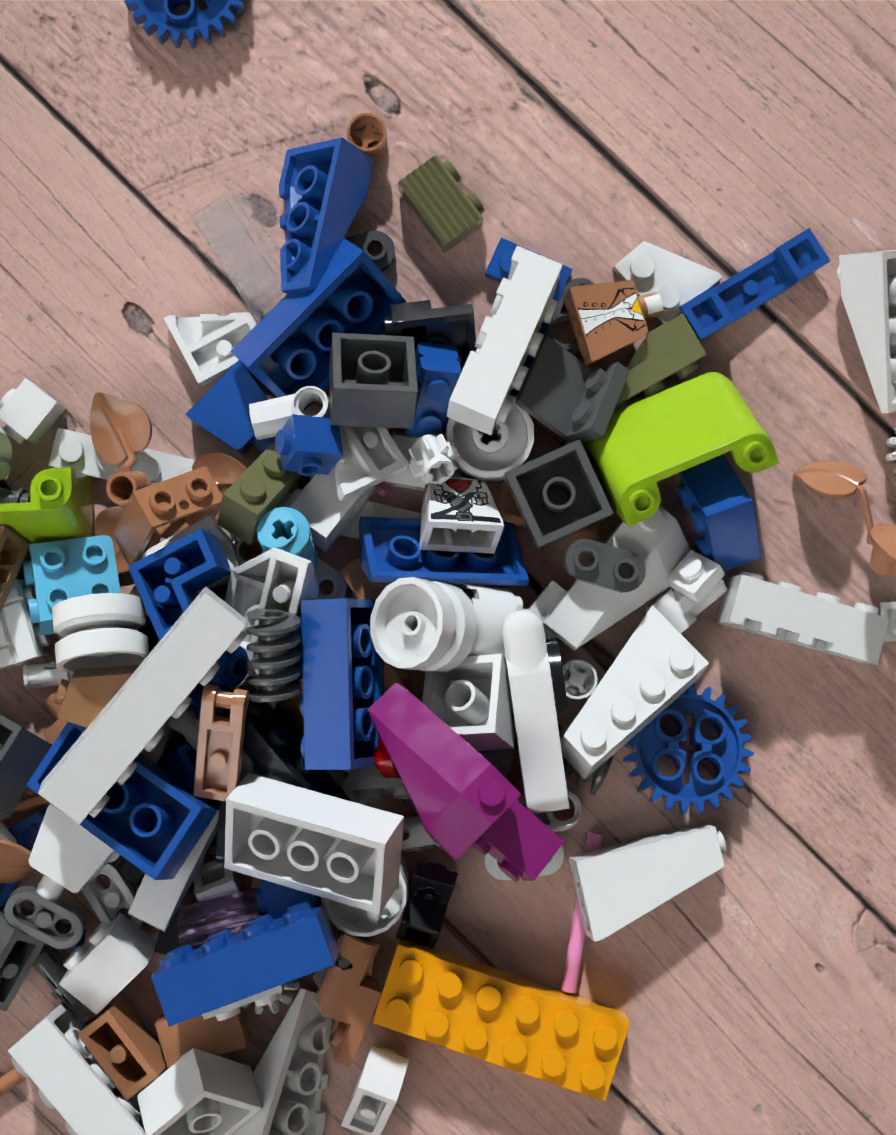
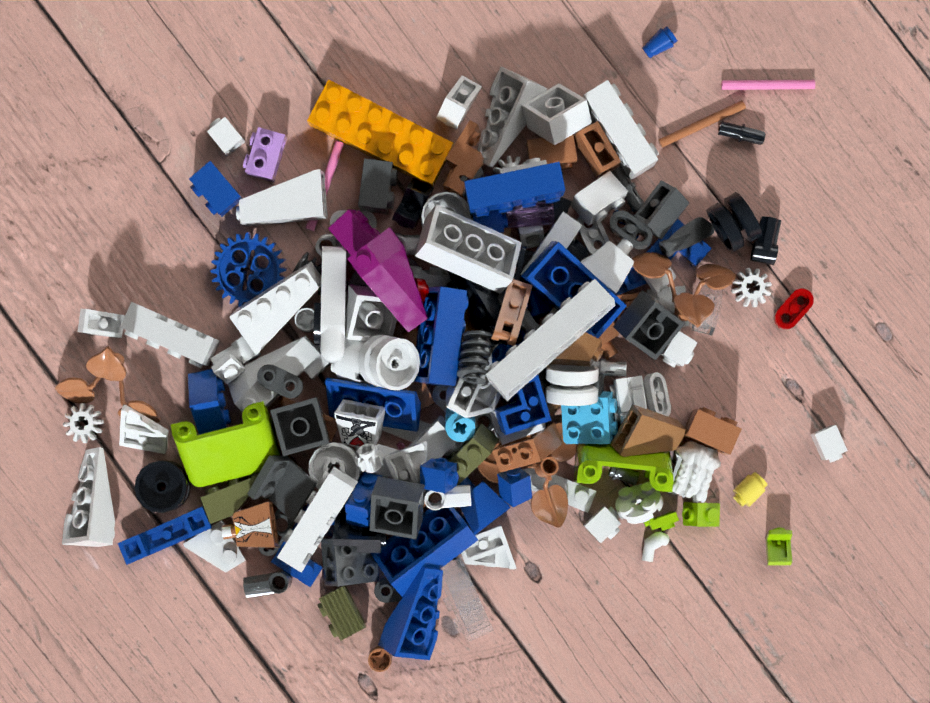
camera: 165 degrees left, 0 degrees up
(181, 447) = (515, 486): none -> blue brick
(446, 277) = (345, 566): none -> dark grey bracket
(493, 926) = (376, 186): none -> dark grey brick
(575, 230) = (265, 584): none -> dark grey piece
(691, 951) = (265, 154): none -> lavender brick
(764, 973) = (225, 135): none -> white brick
(768, 879) = (215, 189): none -> blue brick
(792, 351) = (151, 478): none -> black wheel
(821, 448) = (141, 432): none -> white wing

